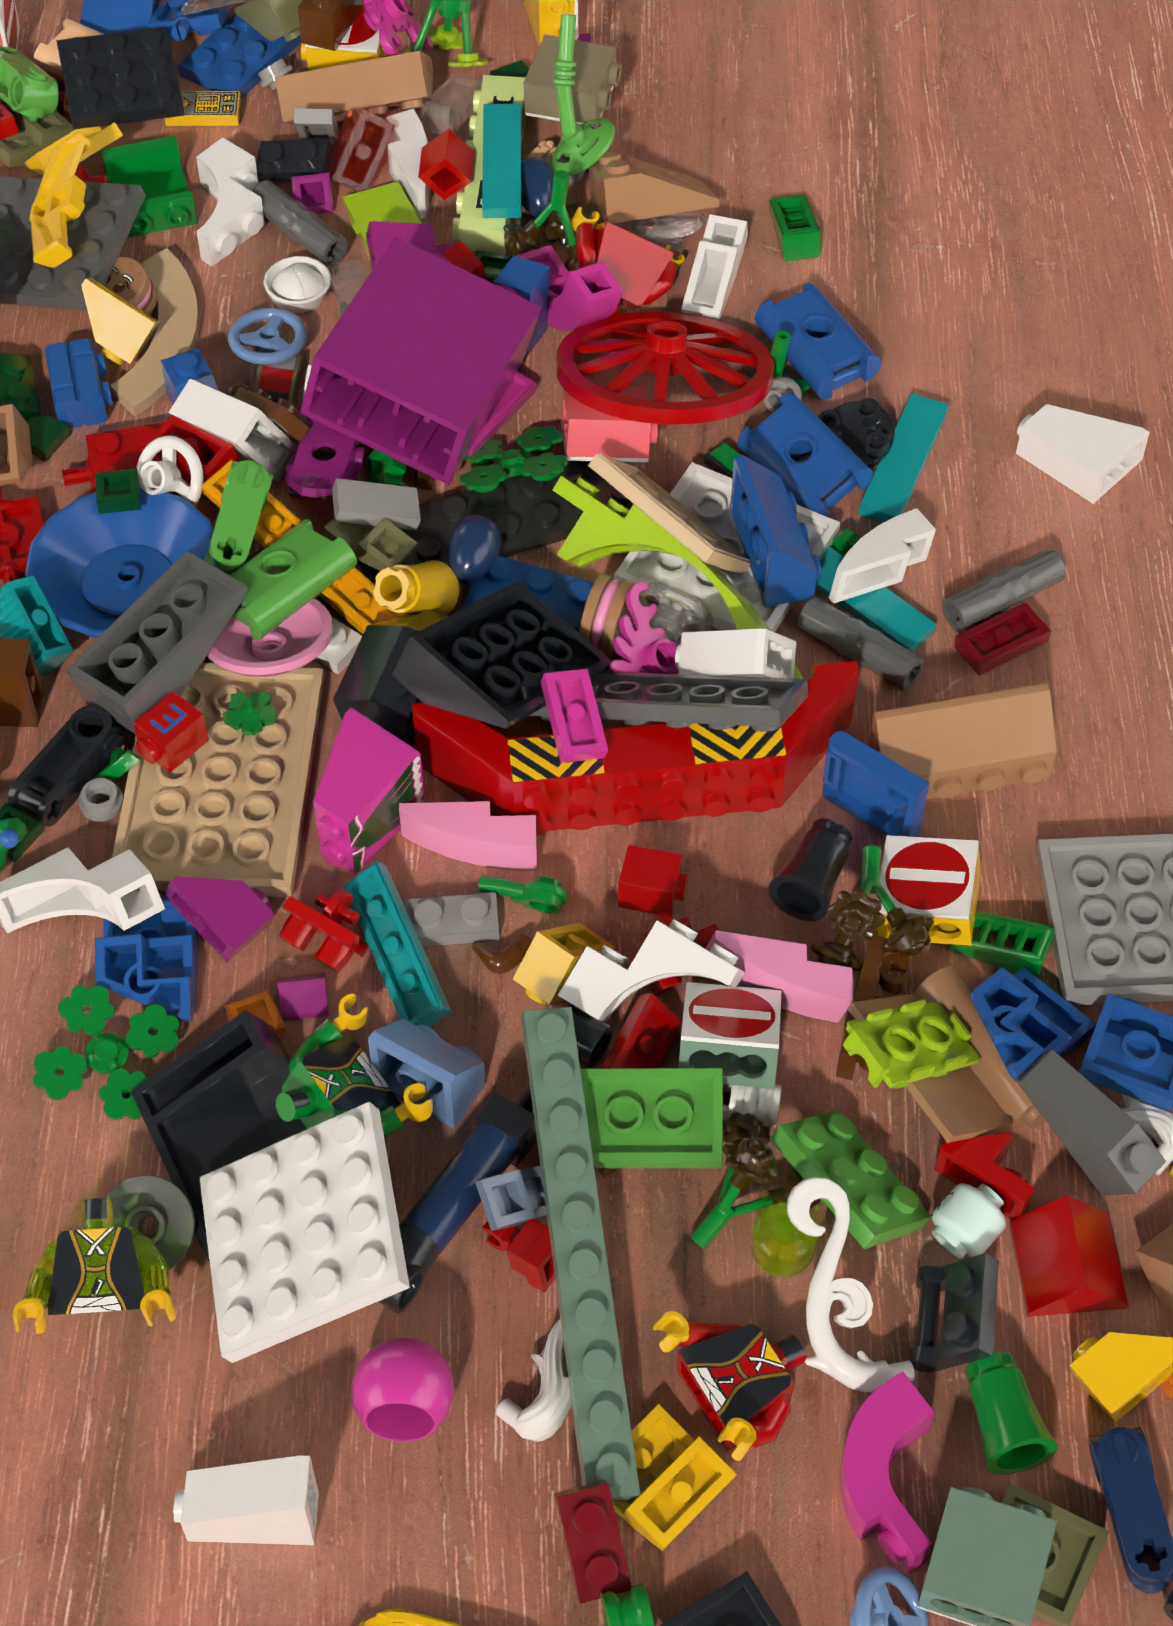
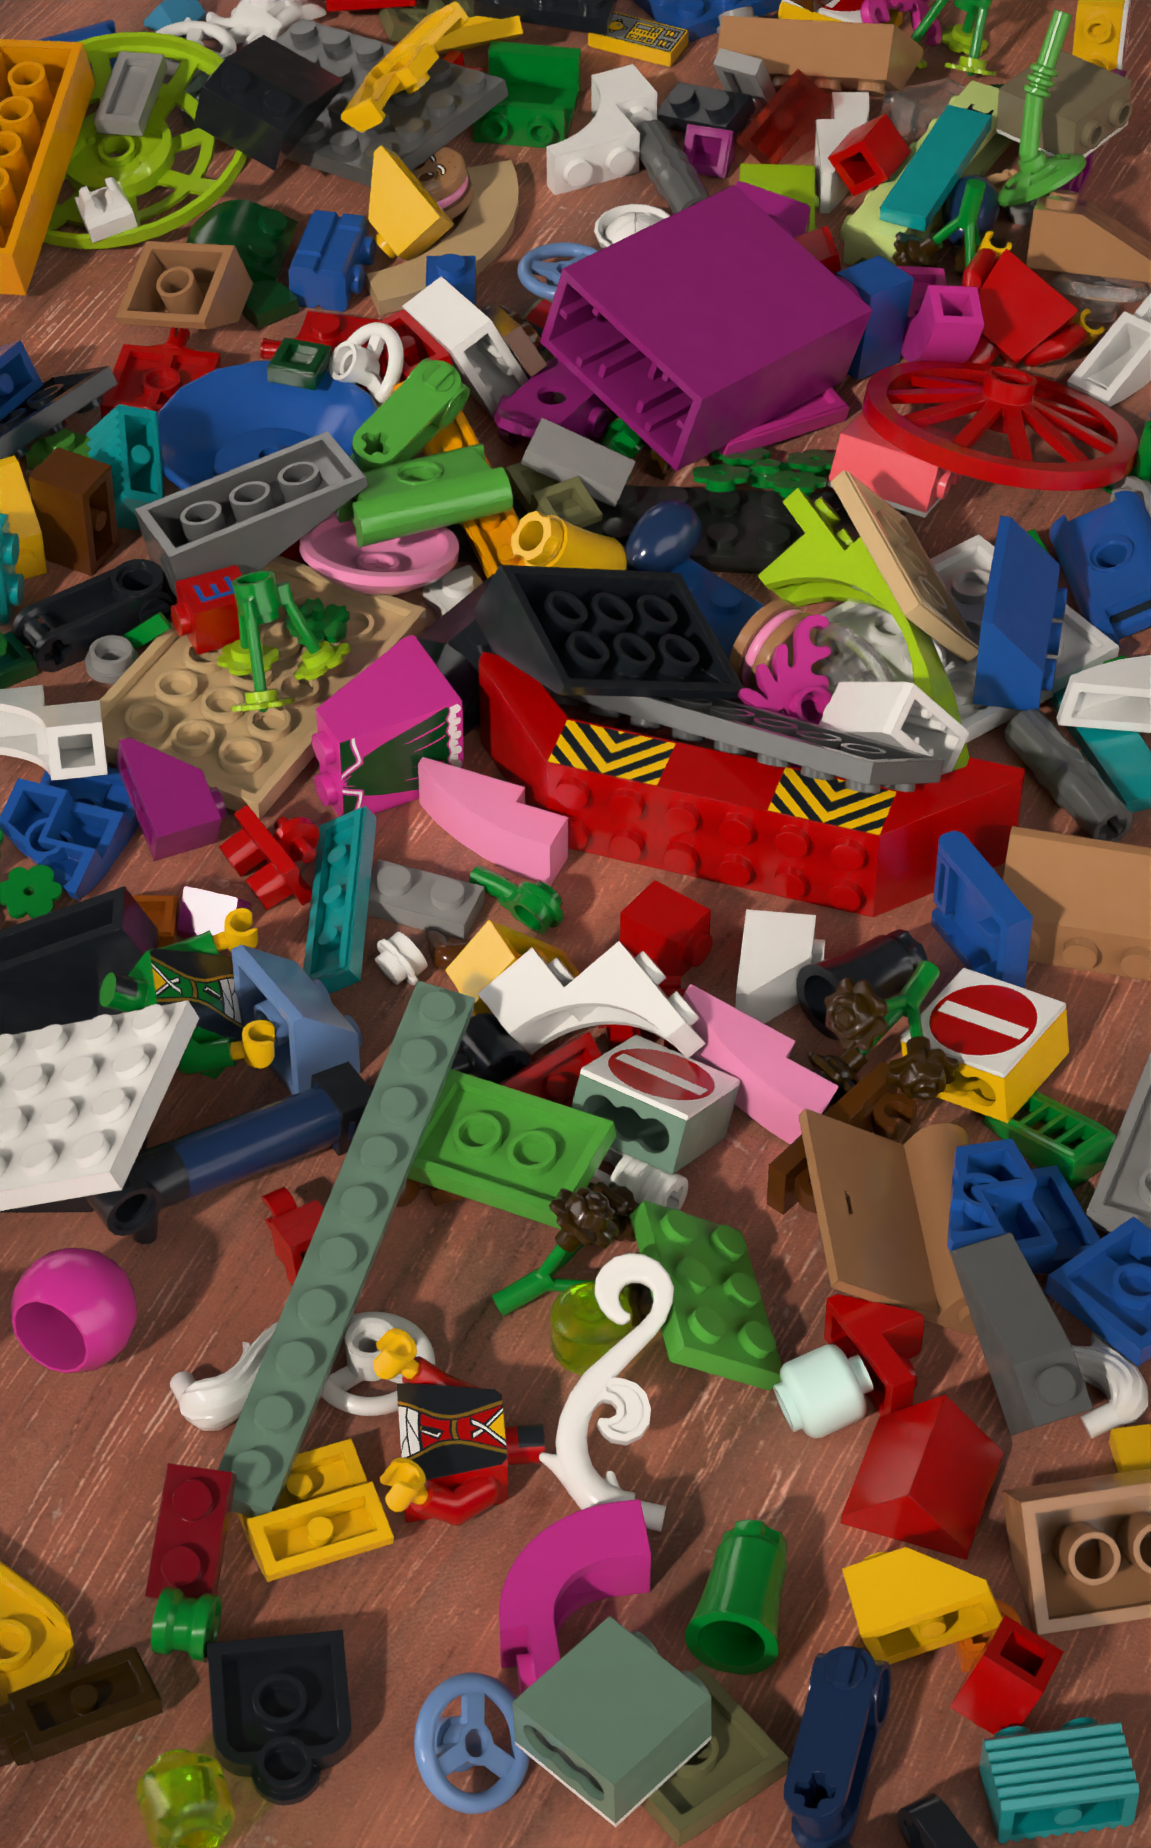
camera: 25 degrees right, 10 degrees down
(218, 721) = (258, 603): none -> plant
(468, 979) = (400, 959): none -> white plate
(513, 1198) = (297, 1166): sand blue slope -> none
(574, 715) = (650, 712): dark pink plate -> none
(640, 1312) = (361, 1351): none -> white piece
(741, 878) = (770, 959): none -> white slope
(910, 1043) = (850, 1174): lime piece -> none
(967, 1315) = (742, 1472): black plate -> none

